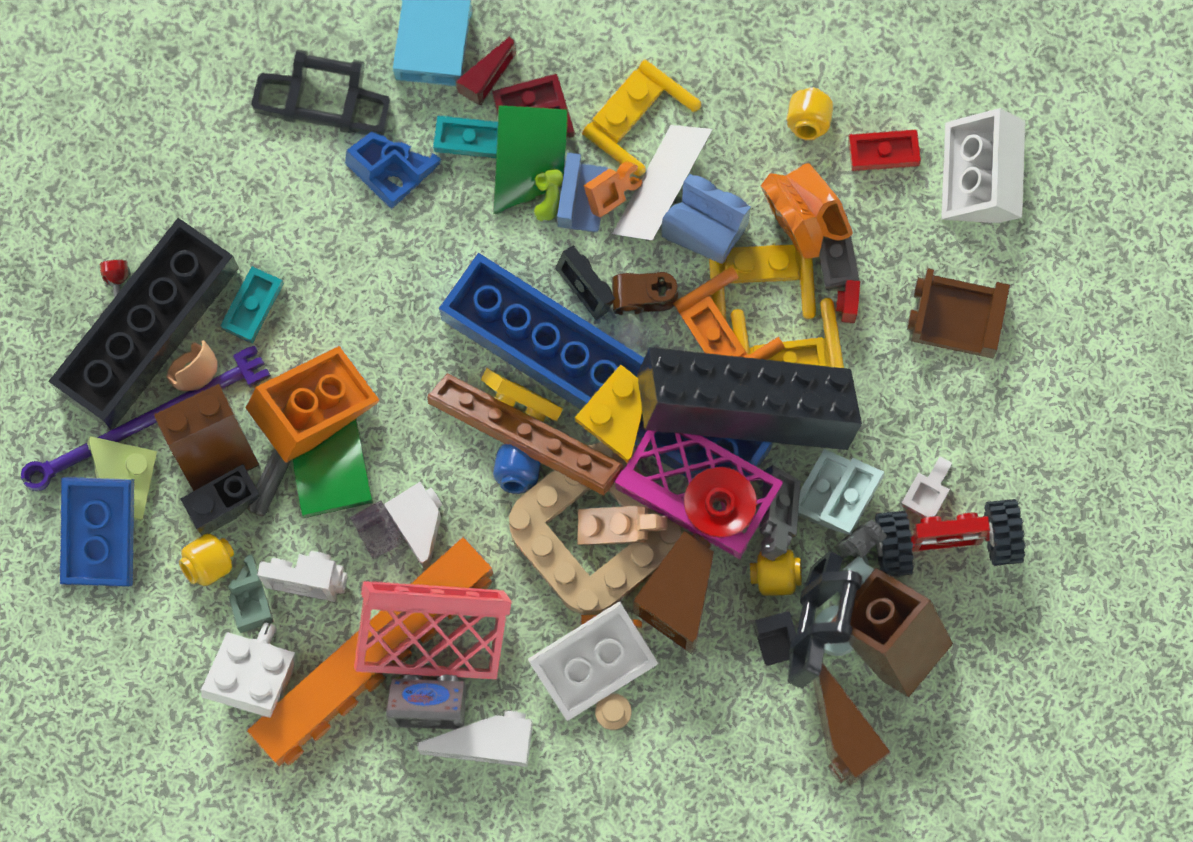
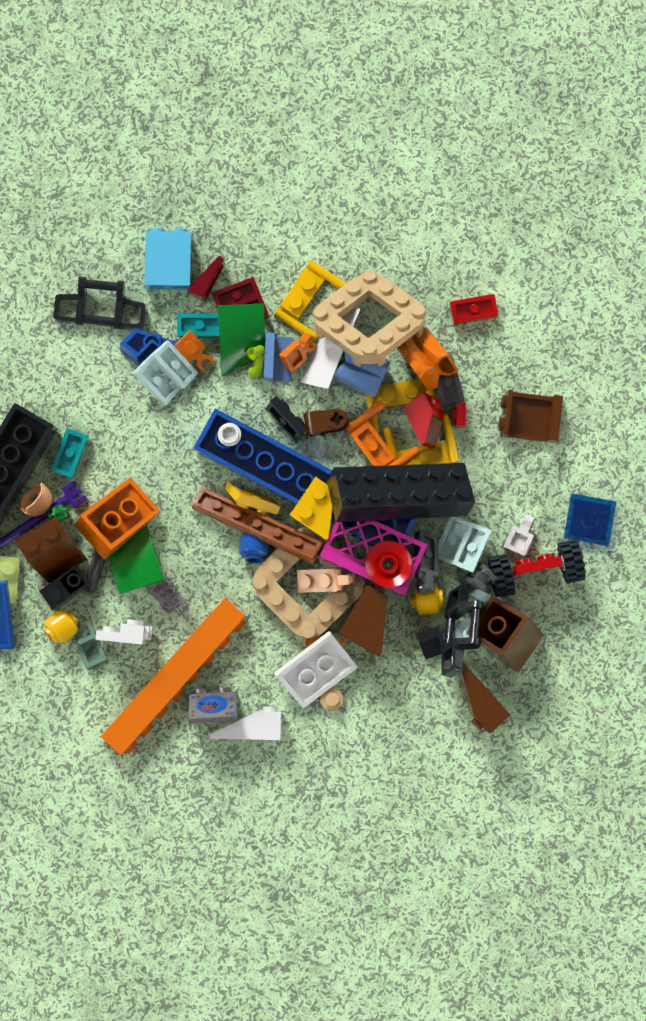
camera: 10 degrees left, 10 degrees up
(230, 387) = (60, 512): none -> green plate
(249, 673) = (97, 699): white plate -> none
(409, 199) = (165, 373): none -> light aqua slope
(417, 519) = (193, 587): white slope -> none
(434, 600) = (214, 644): coral fence -> none
(453, 167) = (191, 348): none -> orange plate
(496, 291) = (229, 434): none -> white plate
(730, 102) = (376, 348): none -> tan plate
(797, 298) = (425, 418): none -> red slope
(809, 113) = (423, 288): yellow head -> none
(984, 168) = (539, 316): white slope -> none
(1038, 476) = (589, 519): none -> clear blue tile

